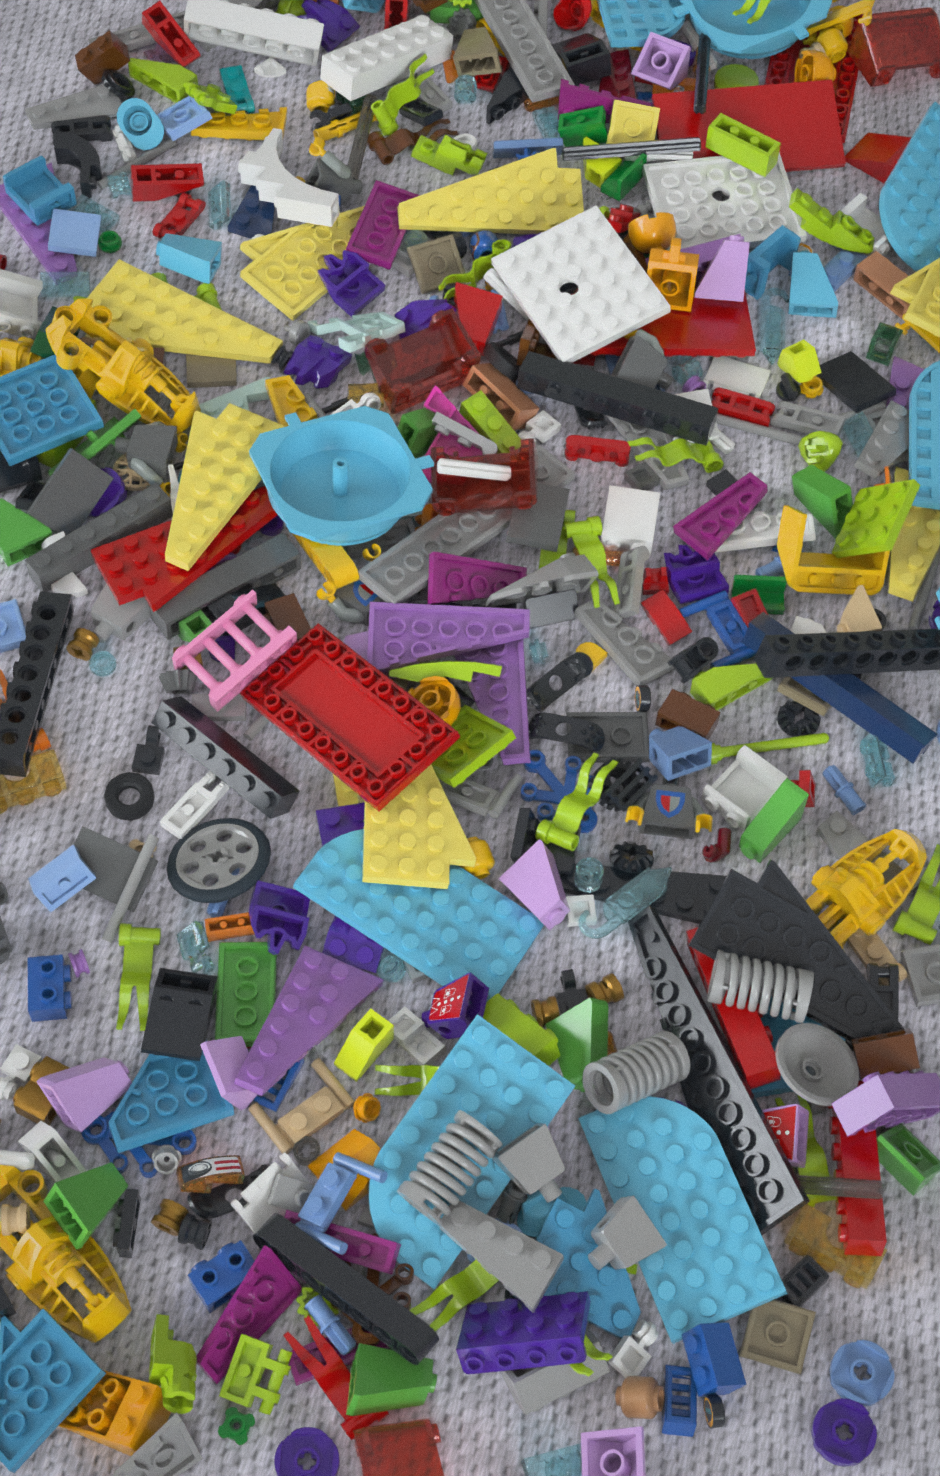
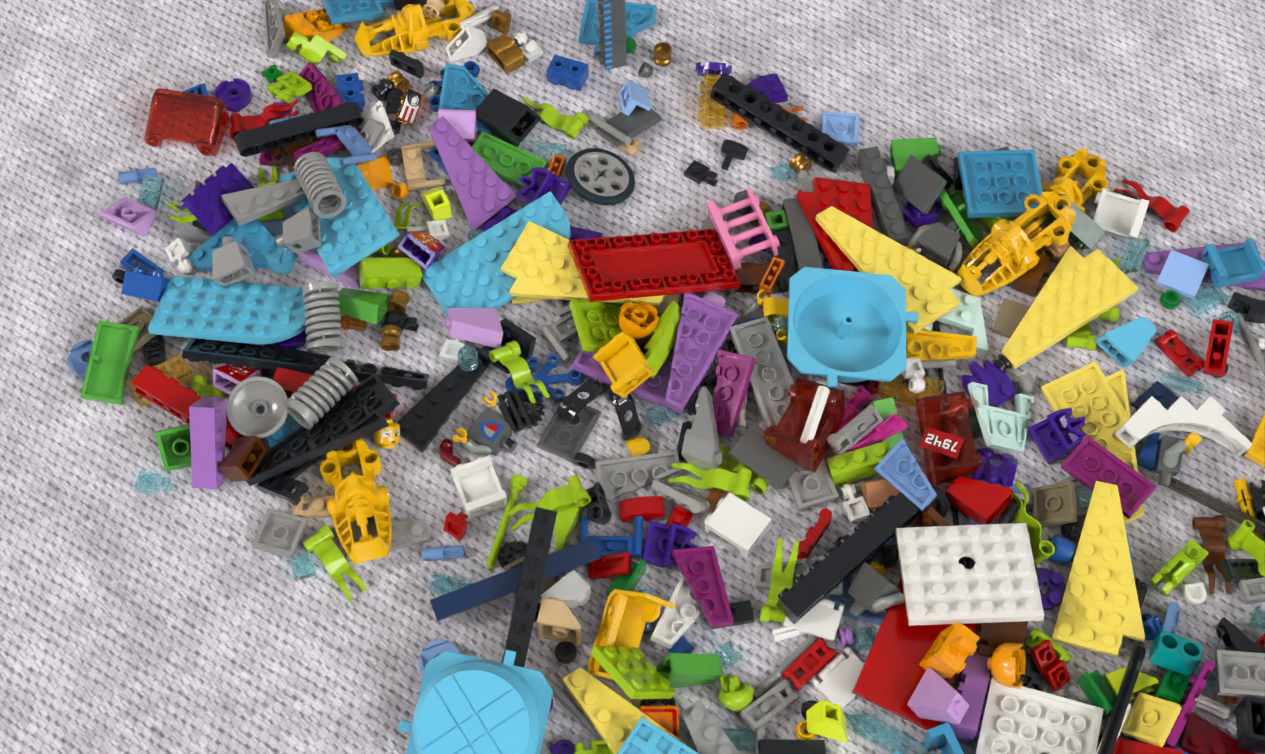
camera: 120 degrees right, 0 degrees up
(69, 585) = (854, 174): white tile -> none
(79, 963) = (575, 92): medium lavender bush -> none
(85, 1090) = (489, 62): lavender slope -> none
(85, 1201) = (425, 43): bright green slope -> none
(94, 730) = (732, 150): none -> black piece
(125, 781) = (675, 163): black tyre -> none
(193, 806) = (648, 181): white hinge -> none
(225, 757) = (670, 204): black brick -> none
(290, 595) = (772, 275): none -> orange piece
(360, 553) = (780, 322): none -> clear light blue plate
(387, 1381) = (240, 121): bright green slope -> none
(425, 366) = (941, 442): none -> red sticker
(484, 858) = (522, 308): yellow head -> none
(497, 369) = (906, 476): none -> medium blue wing
(511, 684) = (623, 364): none -> yellow panel
(557, 134) = (1167, 649): none -> teal piece
(621, 859) = (461, 395): black gear -> none
(628, 901) = (438, 375): clear light blue plate -> none
(640, 1397) = (153, 245): medium nougat head -> none
(642, 477) = (769, 552): dark grey plate -> none
(678, 752) = (527, 453): medium blue torso -> none
(686, 712) = (550, 477): reddish brown brick -> none
(722, 692) = (555, 498): none -> lime flag
(774, 821) = (441, 488): bright green slope -> none
(780, 474) = (728, 655): none -> clear light blue wheel
(842, 1187) = (183, 375): clear smoke axle -> none
(854, 1323) = (110, 362): none -> bright green container
(859, 1424) = (61, 324): dark purple plate -> none

